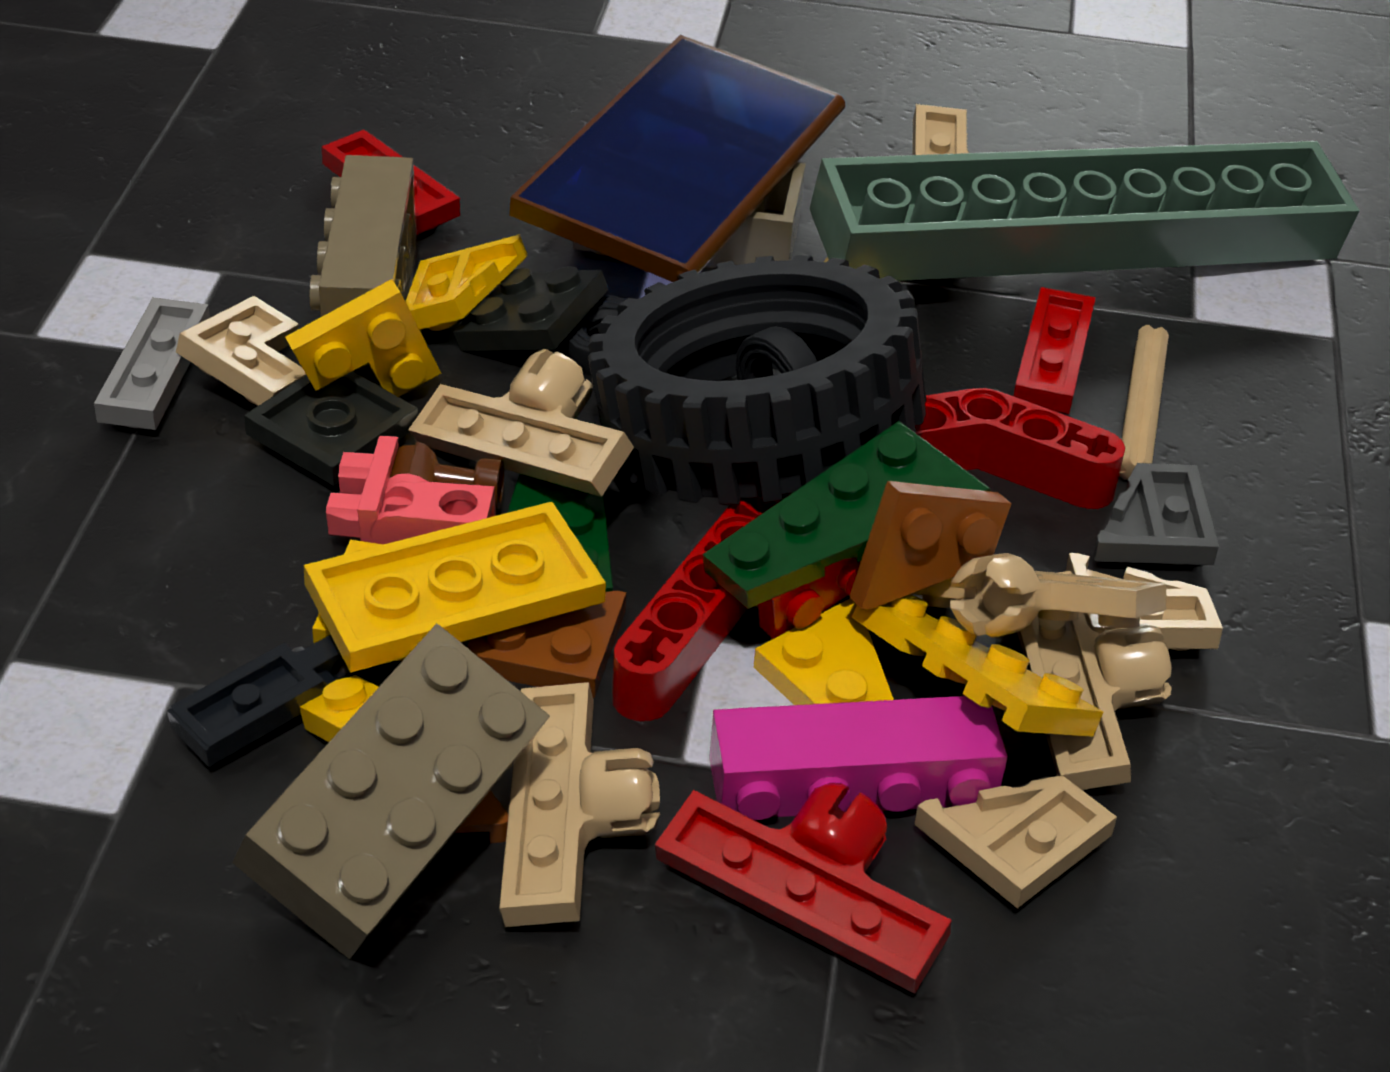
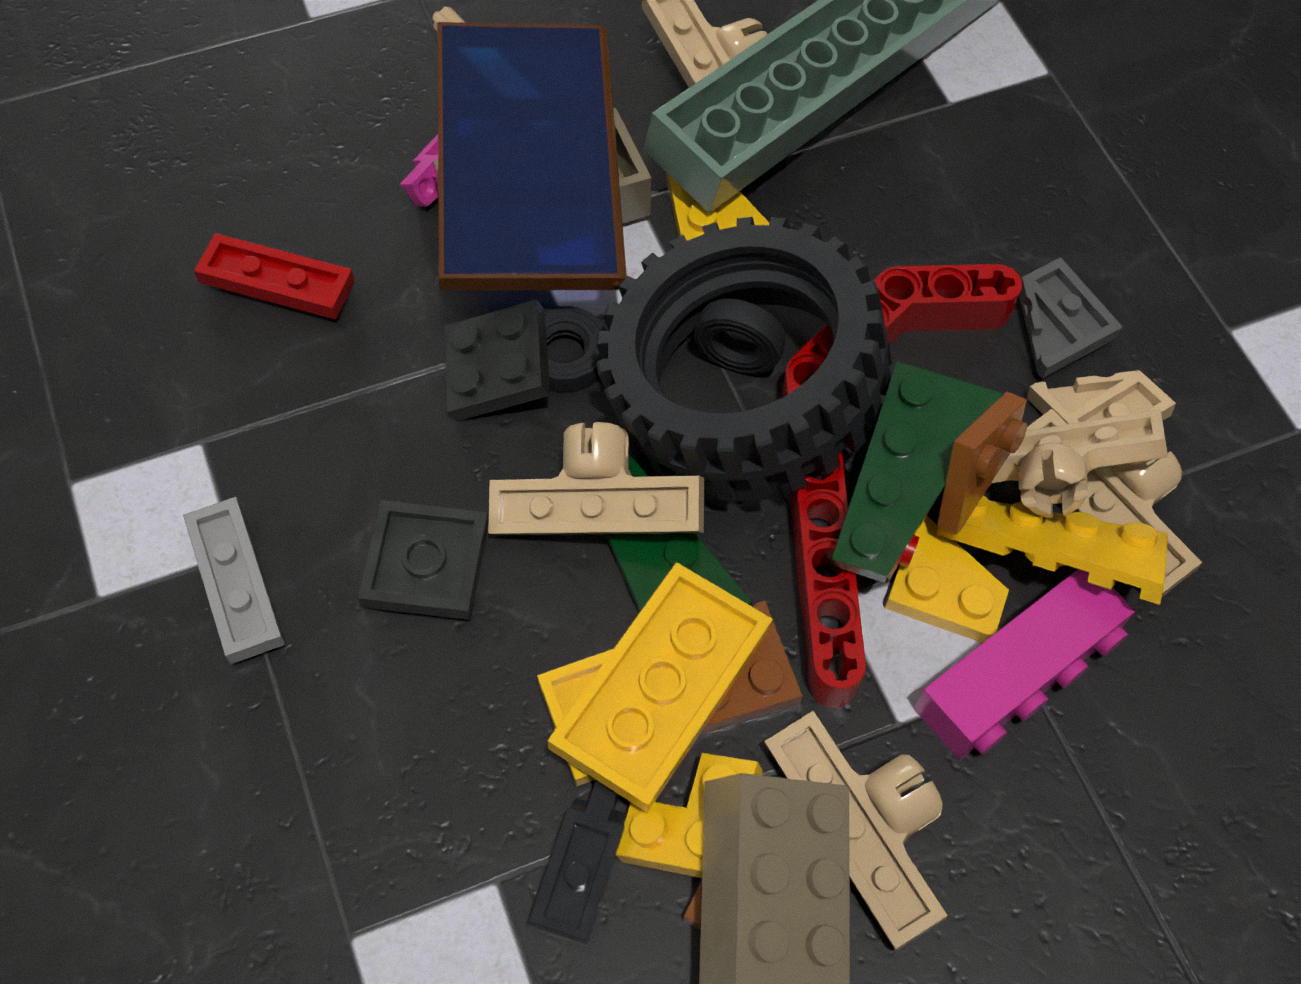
camera: 30 degrees left, 20 degrees up
(243, 349) = (297, 537): tan plate -> none
(366, 234) = (347, 393): dark tan brick -> none
(366, 330) = (424, 467): yellow plate -> none
(409, 493) = (548, 618): coral hips -> none
(458, 281) = (420, 363): yellow wing -> none
(811, 878) = (1068, 785): red plate -> none
(1020, 835) = (1164, 659): tan wing -> none
(1054, 349) = (890, 191): red plate -> none
(1144, 398) = (974, 202): tan axle -> none

